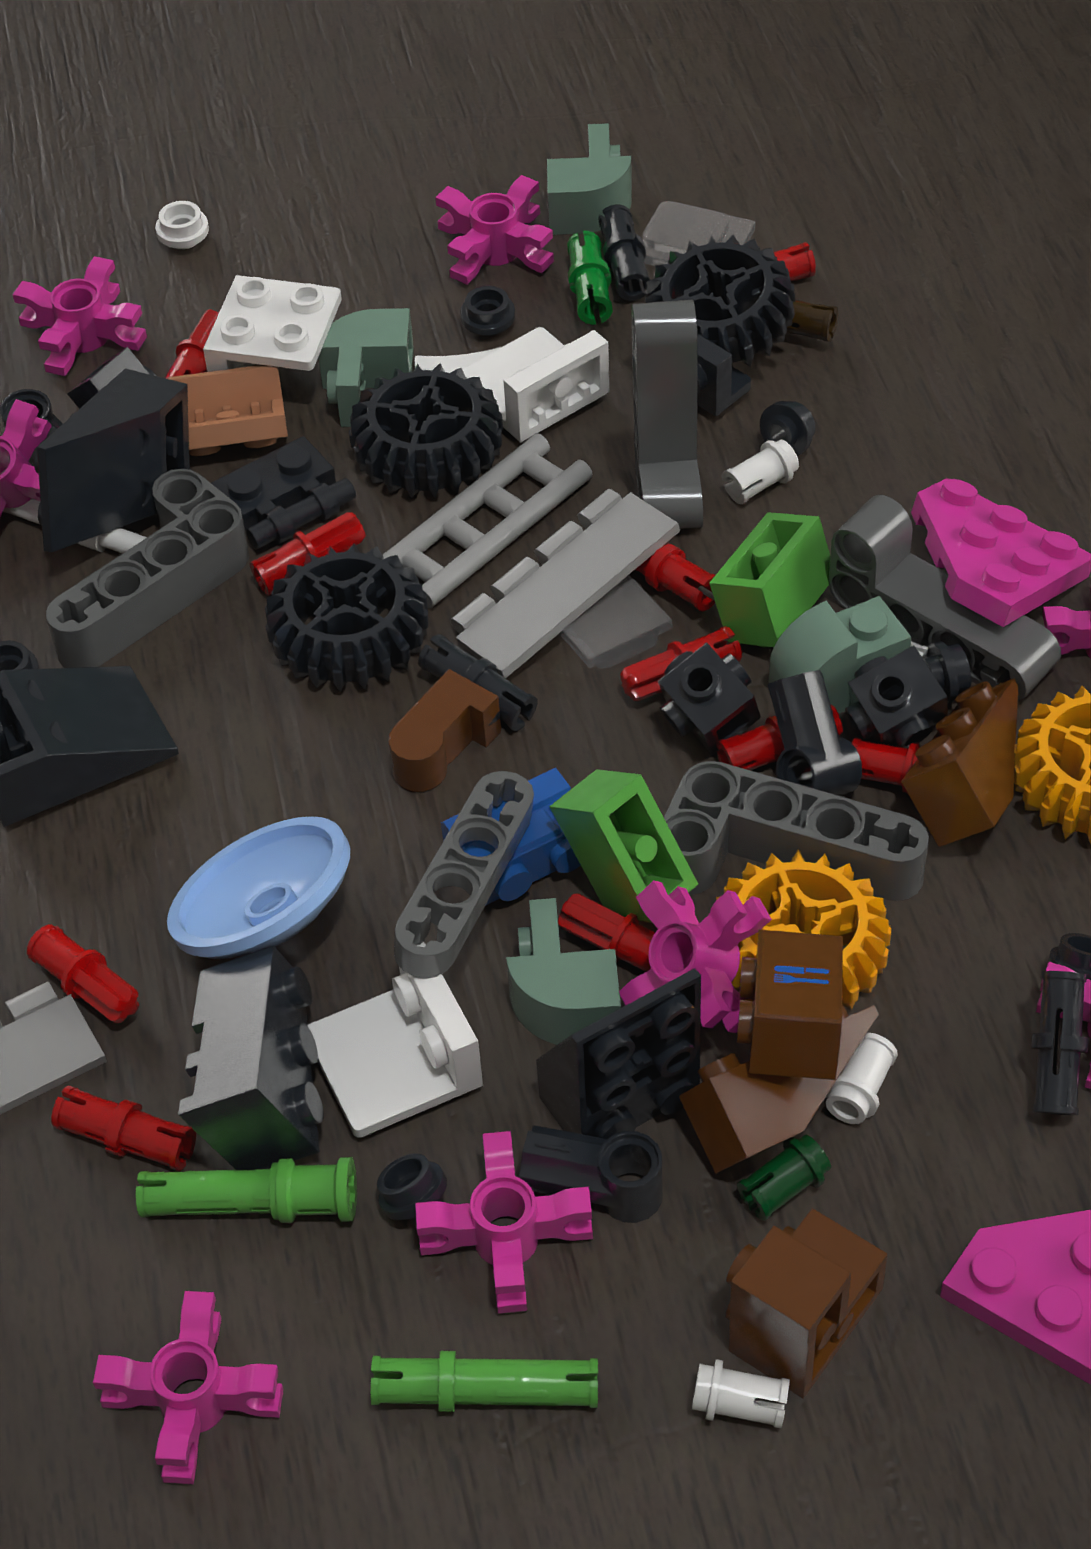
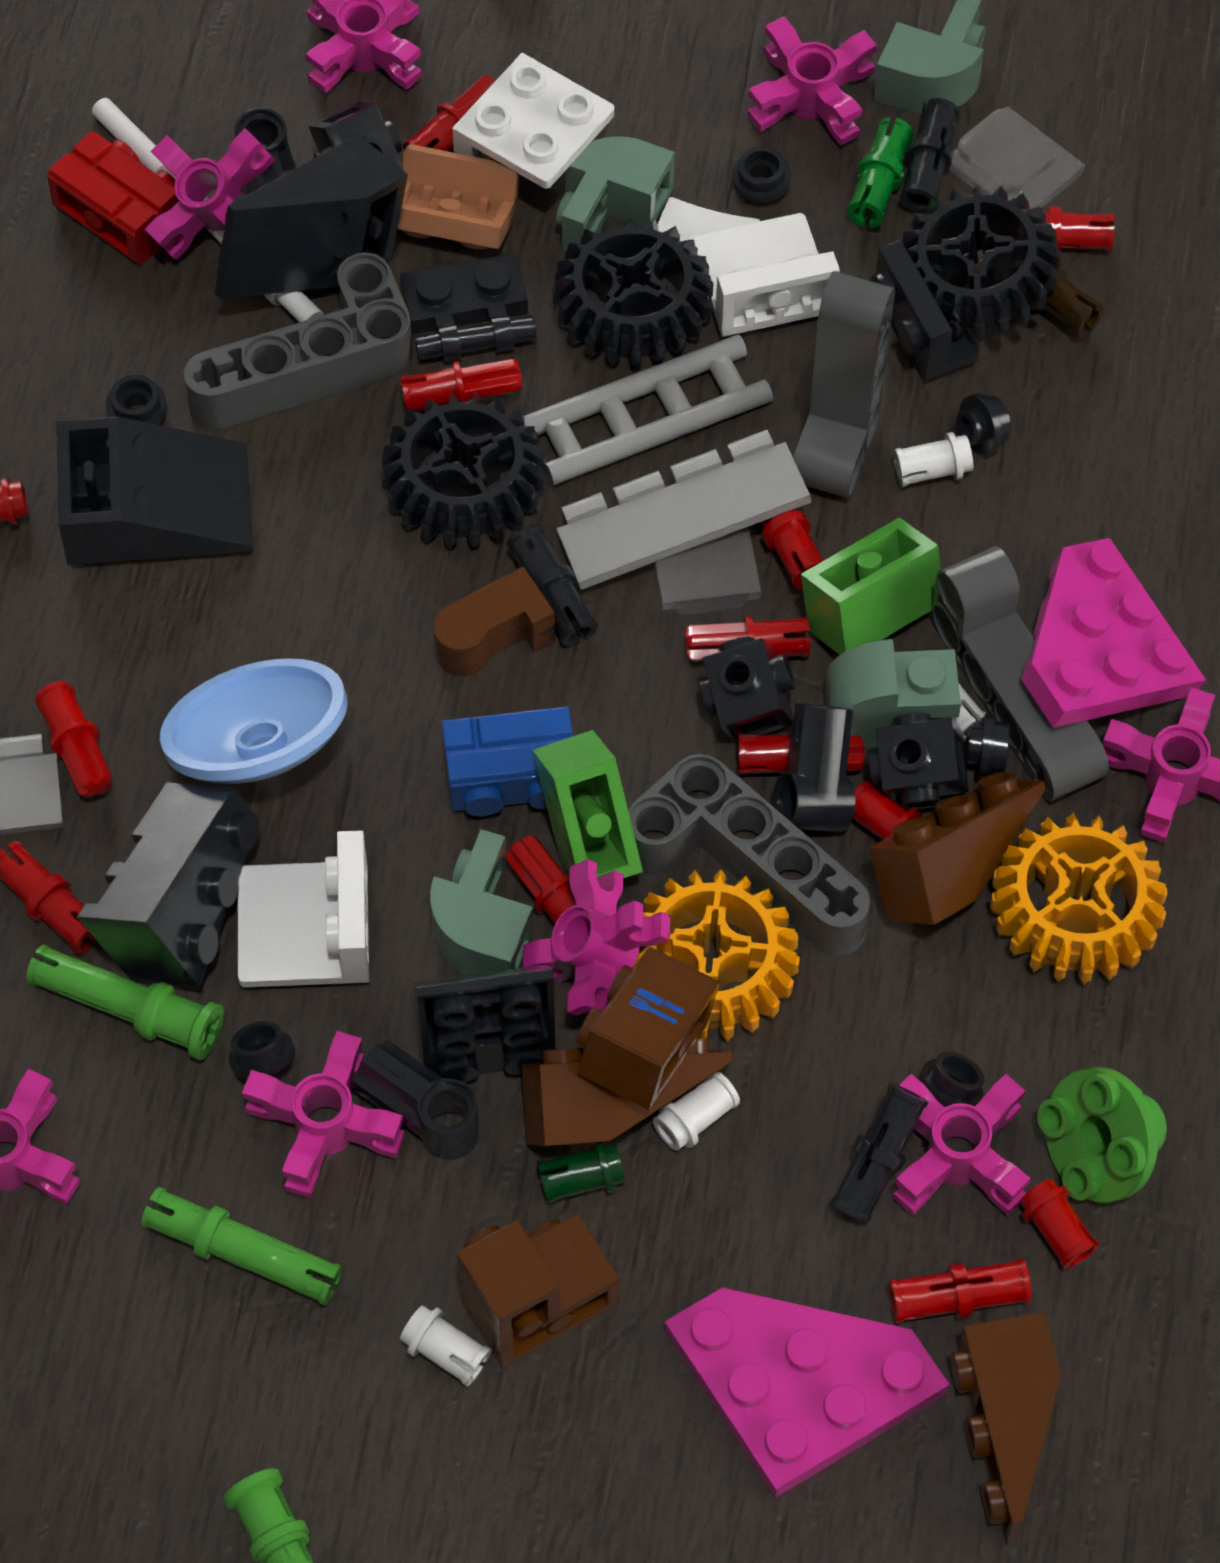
camera: 20 degrees right, 10 degrees up
(458, 869) = (435, 788): dark grey beam -> none

